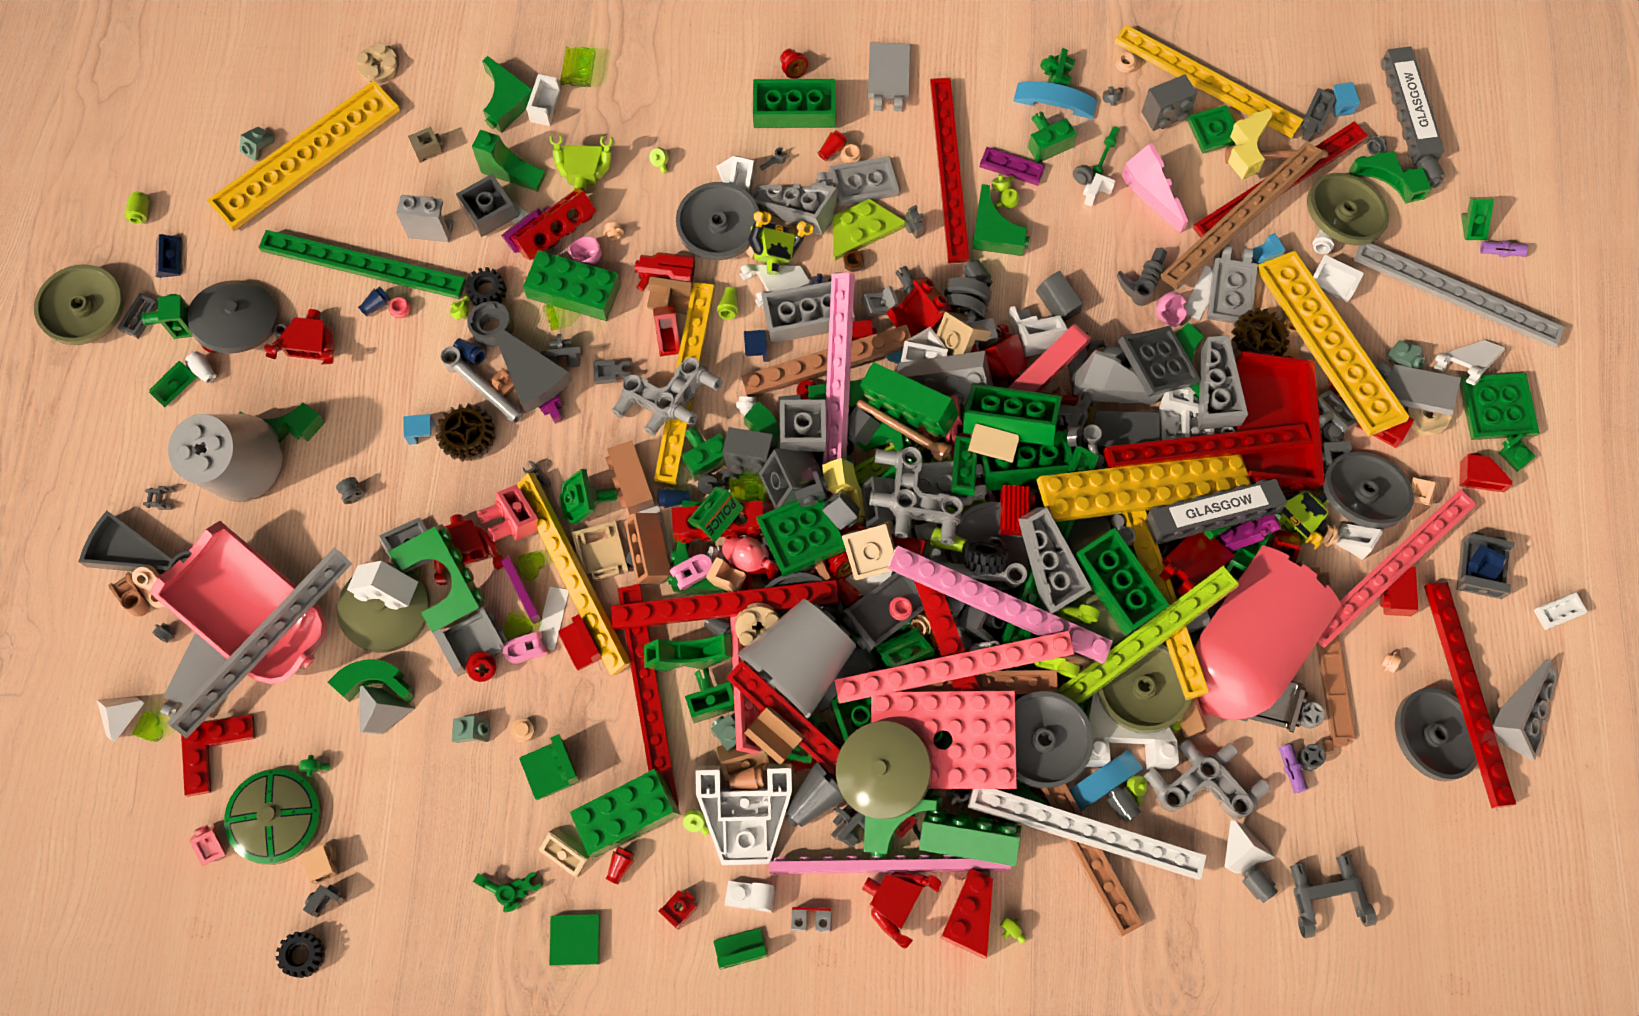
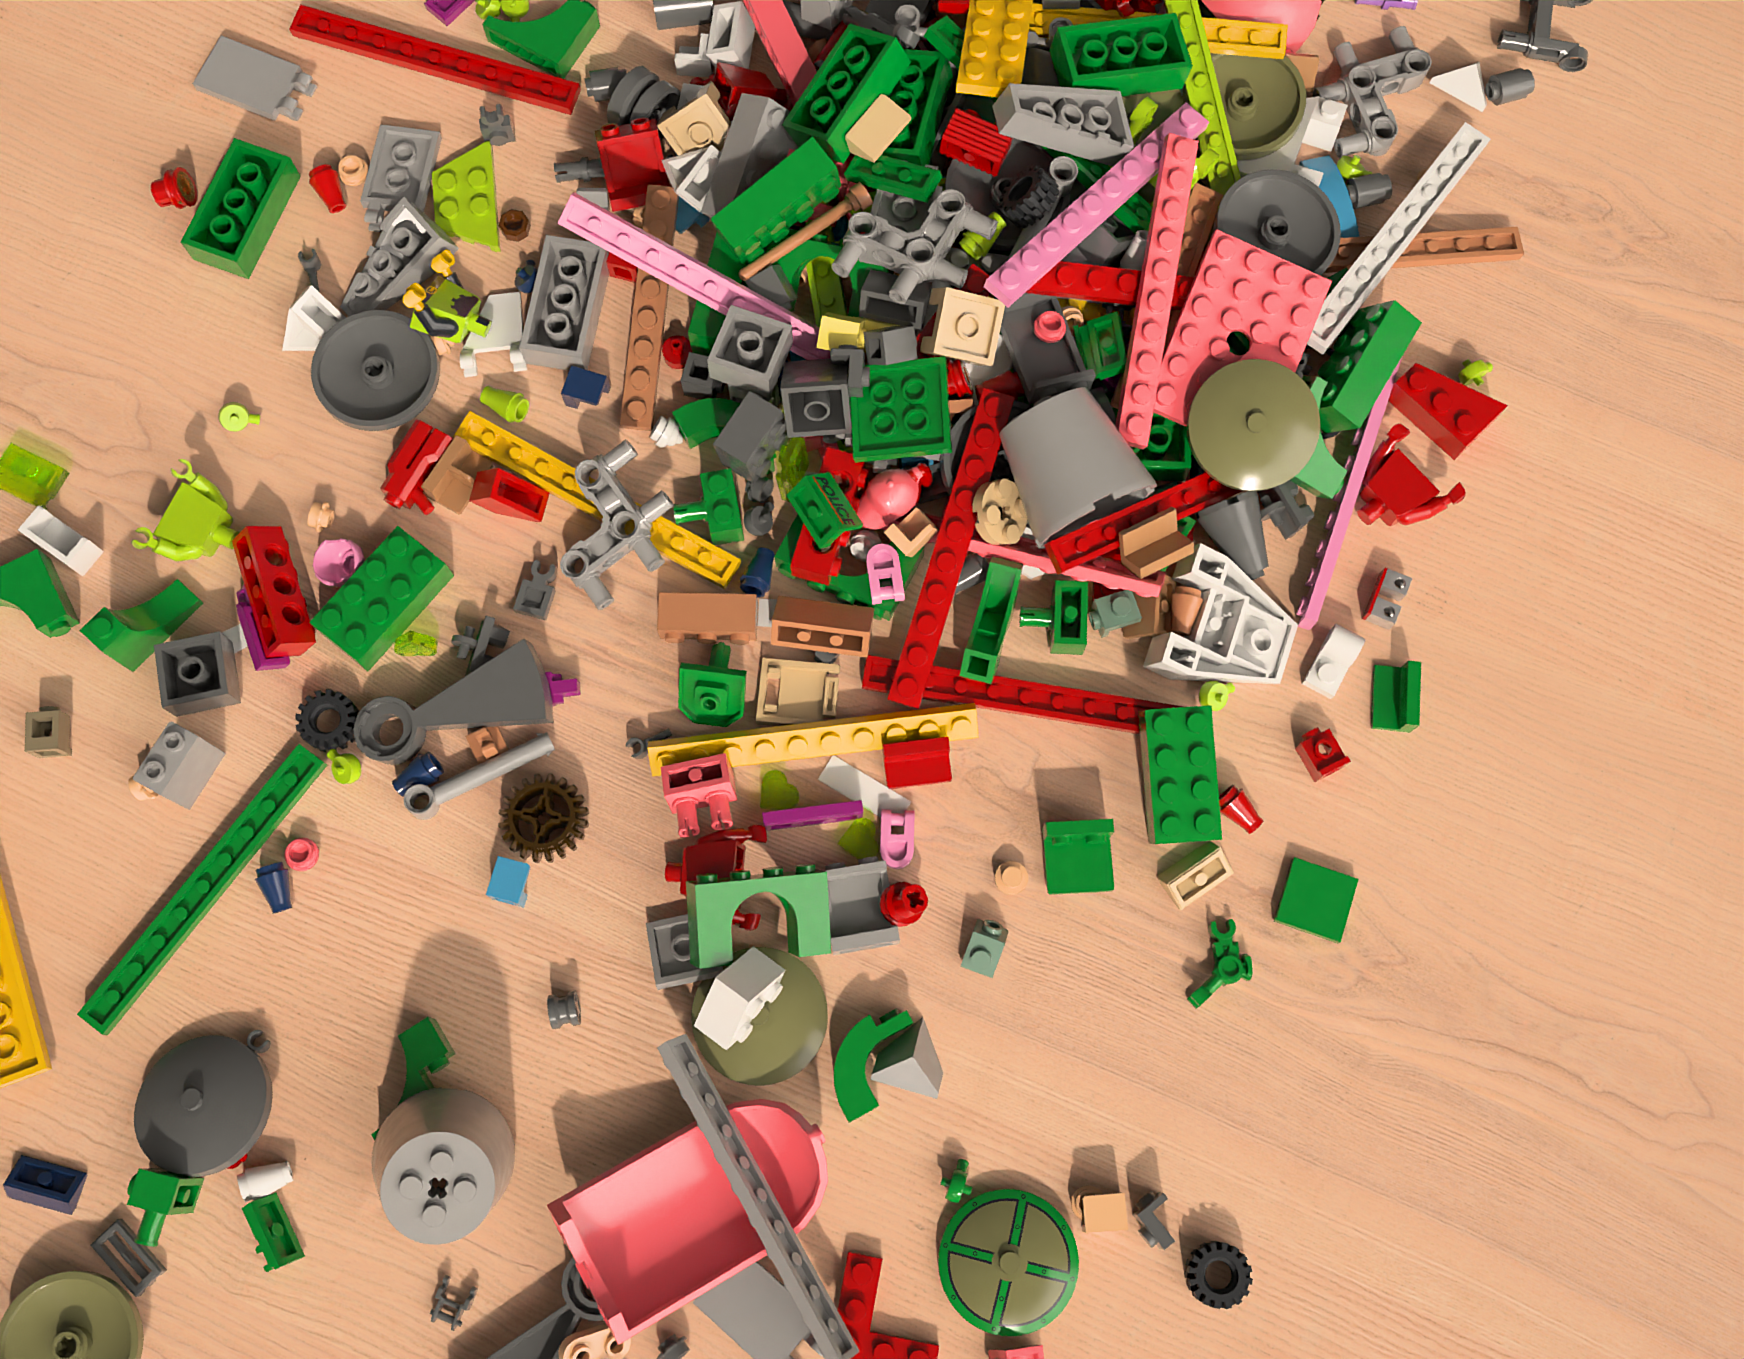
camera: 70 degrees left, 5 degrees up
(305, 339) = (292, 1004): red torso -> none

